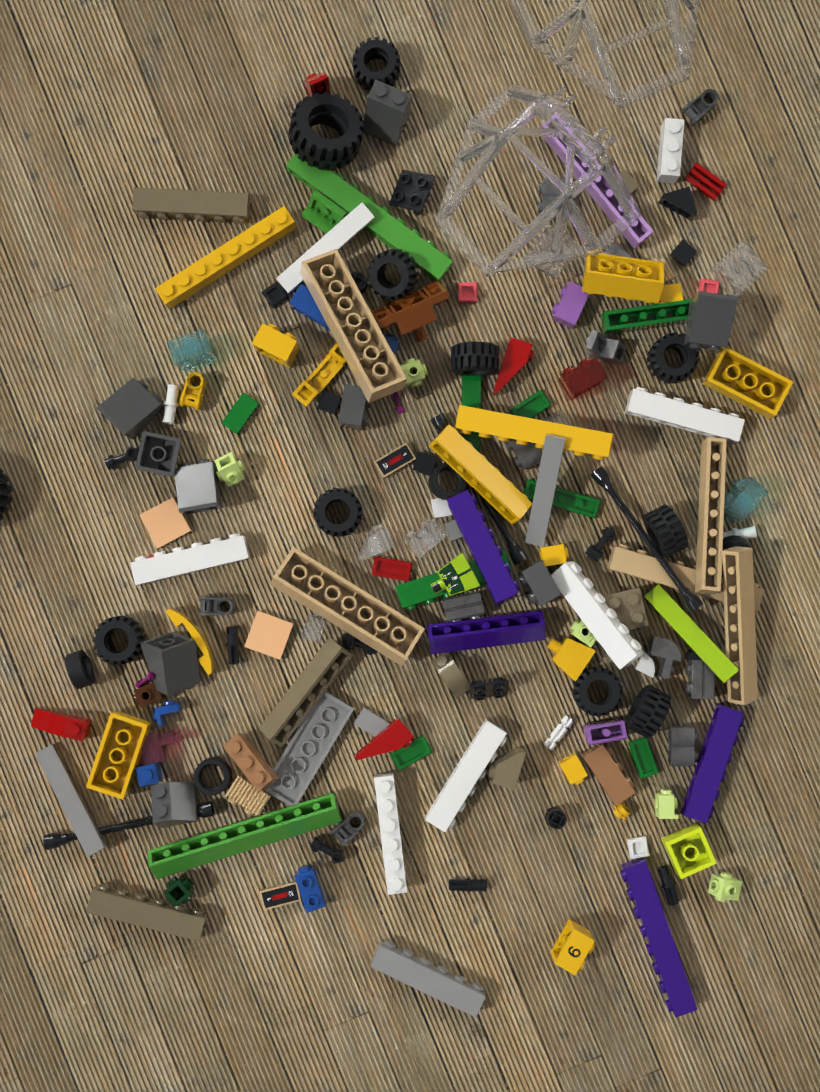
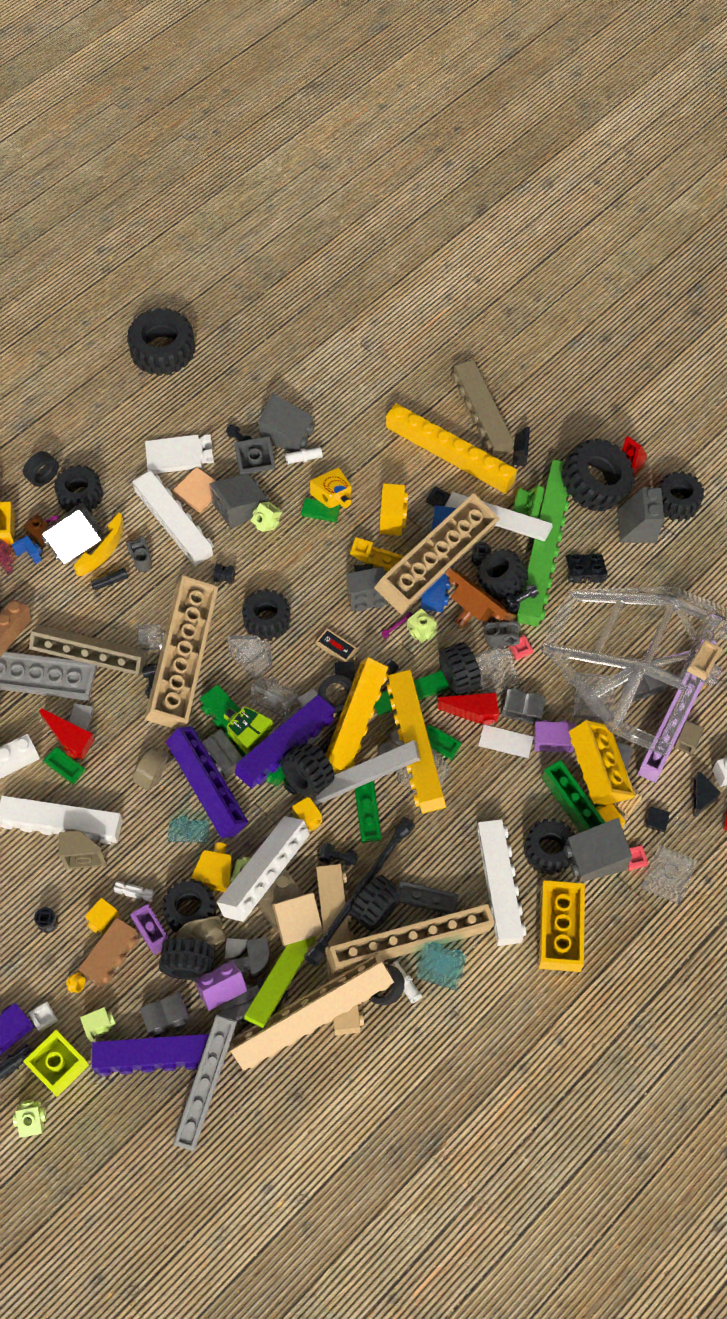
camera: 70 degrees right, 25 degrees down
(114, 527) = (178, 453): none -> white tile
(192, 350) = (357, 449): clear light blue brick -> none
(192, 392) = (322, 465): yellow piece -> none
(226, 393) = (332, 489): none -> yellow torso
(255, 188) = (521, 447): none -> black slope
(269, 635) = (130, 605): light nougat tile -> none
(274, 533) = (224, 573): none -> black wheel
(392, 569) = (234, 682): red tile -> none
(425, 279) = (512, 601): none -> black bar
(454, 302) = (501, 633): none -> dark grey piece
(484, 325) = (497, 670): none -> clear slope
(497, 688) = (152, 805): black hinge -> none
(522, 665) = (188, 831): none -> clear light blue slope
(523, 540) = (307, 770): none -> black tyre
(530, 317) = (523, 706): none -> flat silver brick
(539, 583) = (273, 806): dark grey brick -> none
(553, 349) = (506, 741): none -> white sticker
(582, 378) = (487, 768): clear red brick -> none
(593, 137) = (704, 660): none -> tan tile
(604, 348) = (527, 779): flat silver brick -> none
(631, 687) = (206, 930): none -> dark tan piece
(643, 757) = (139, 984): green tile -> none
(652, 603) = (297, 918): none -> tan tile
(669, 483) = (428, 897): none -> dark grey tile
(684, 692) = (220, 985): none -> medium lavender brick
(755, 733) = (205, 1083): none -> light grey tile

